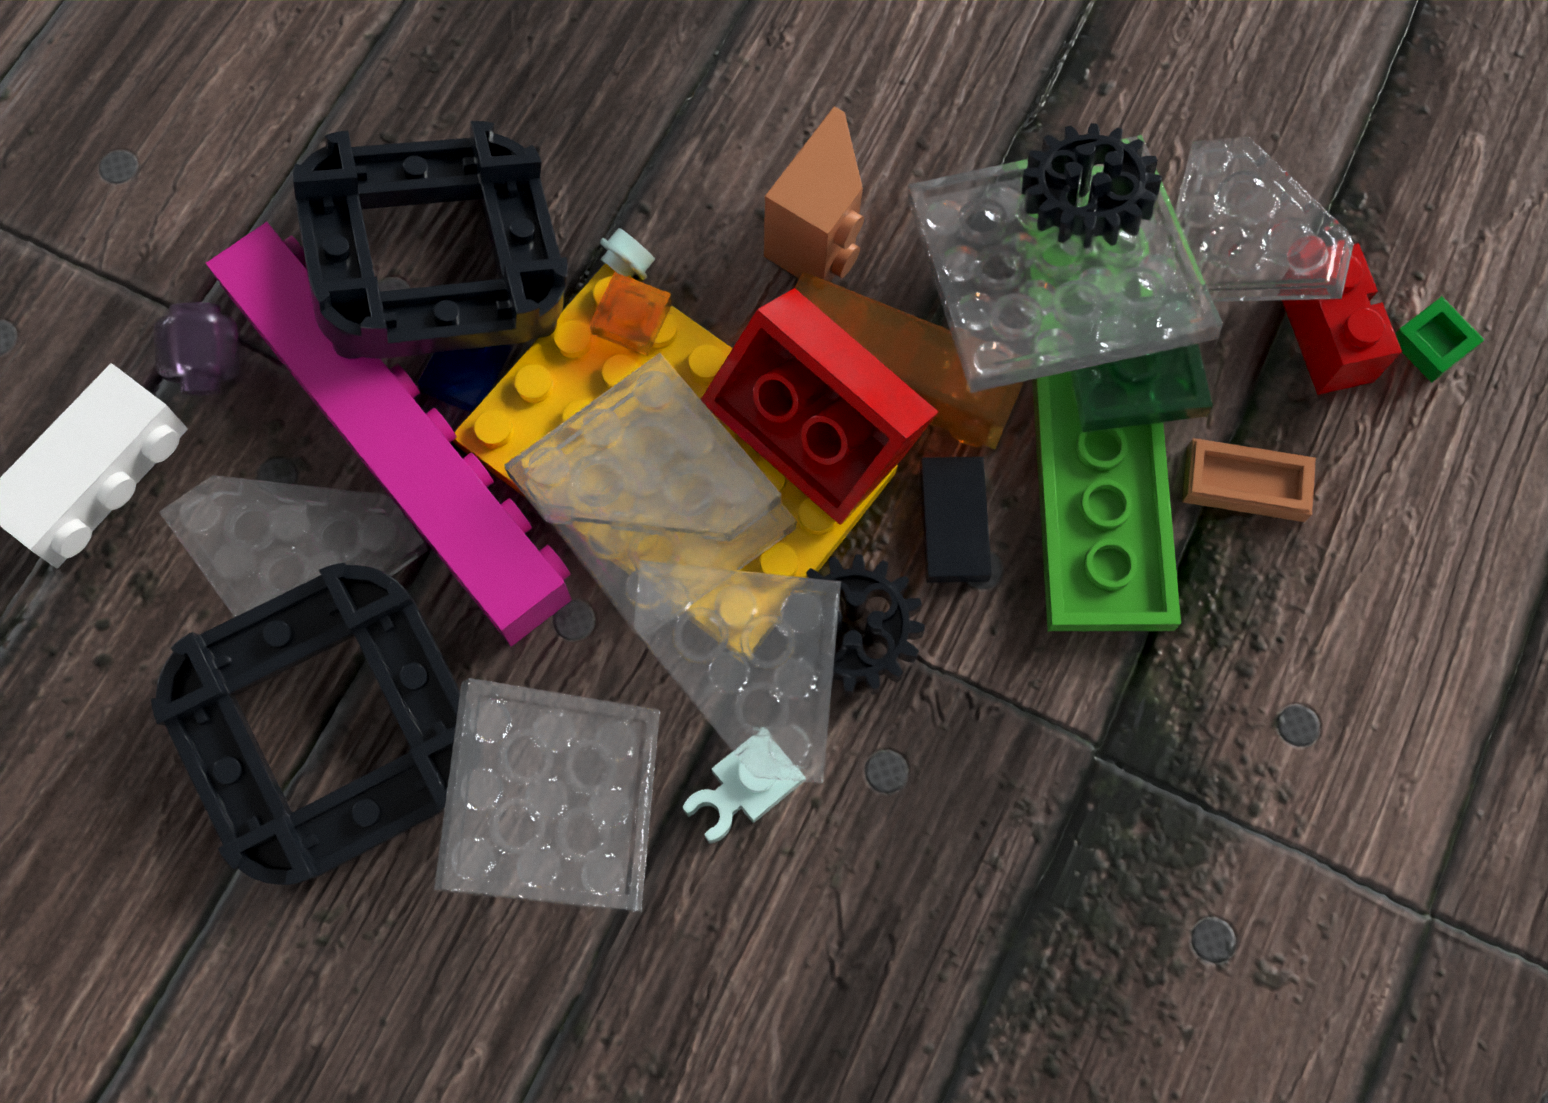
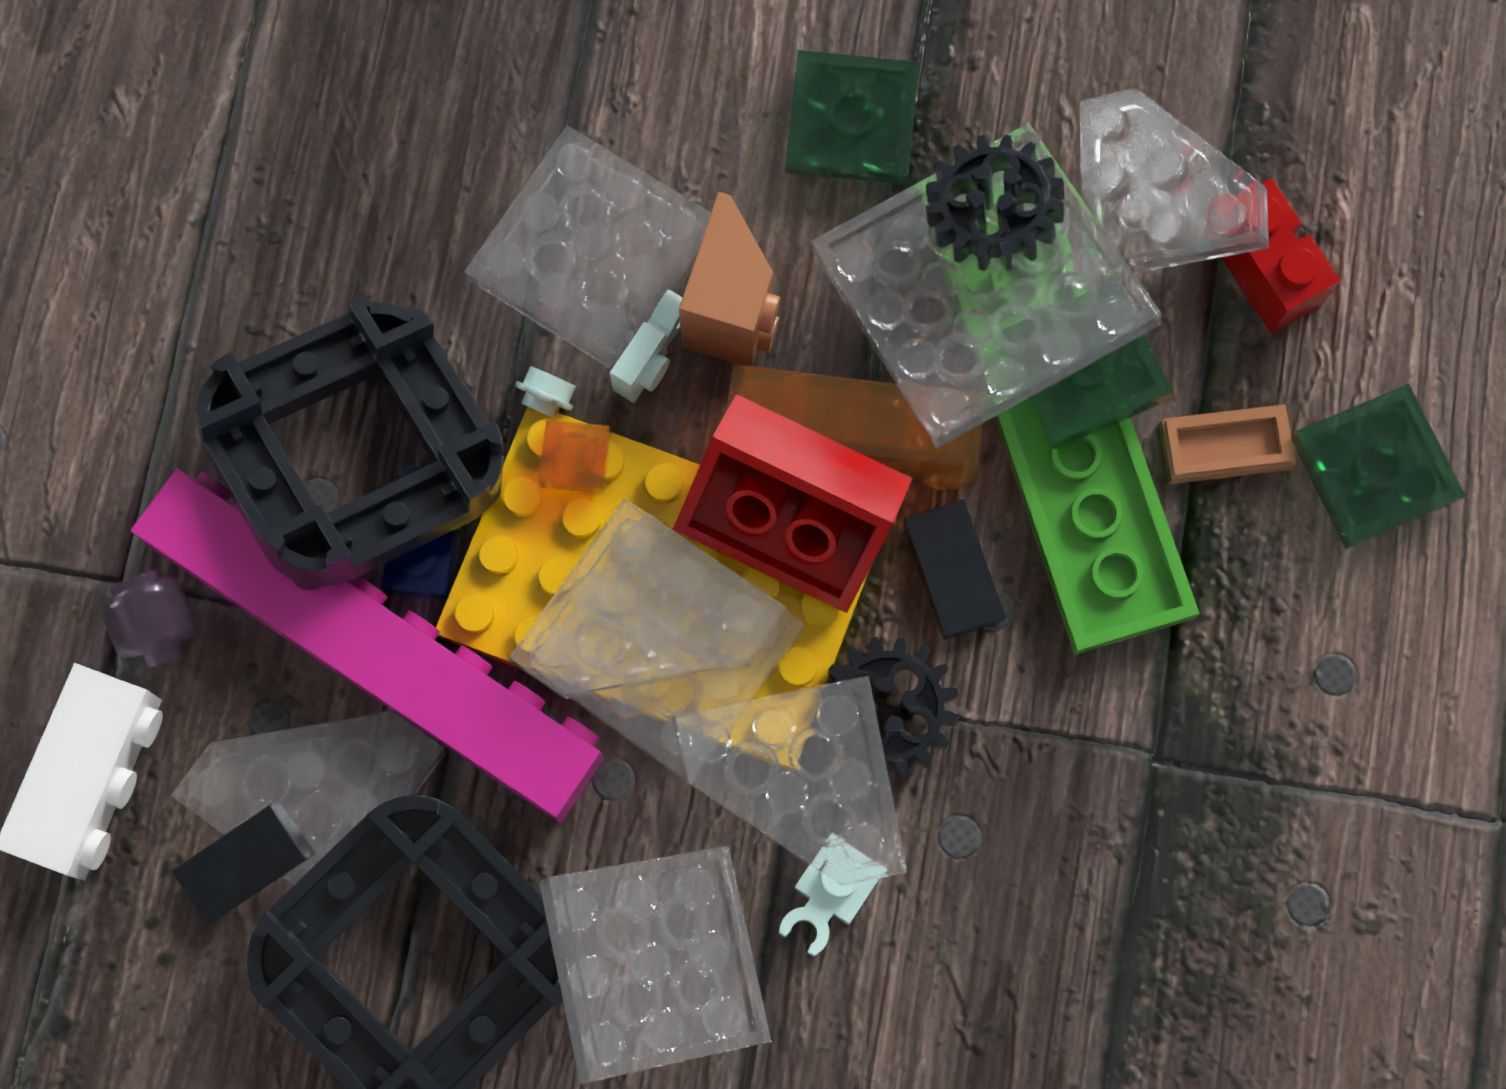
camera: 15 degrees left, 5 degrees up
(199, 588) = (243, 862): none -> black tile
(703, 149) = (590, 247): none -> clear plate
(725, 247) = (644, 359): none -> light aqua plate
(979, 99) = (852, 117): none -> clear green plate
(1391, 539) = (1377, 466): none -> clear green plate
(1437, 339) = (1372, 246): green plate -> none

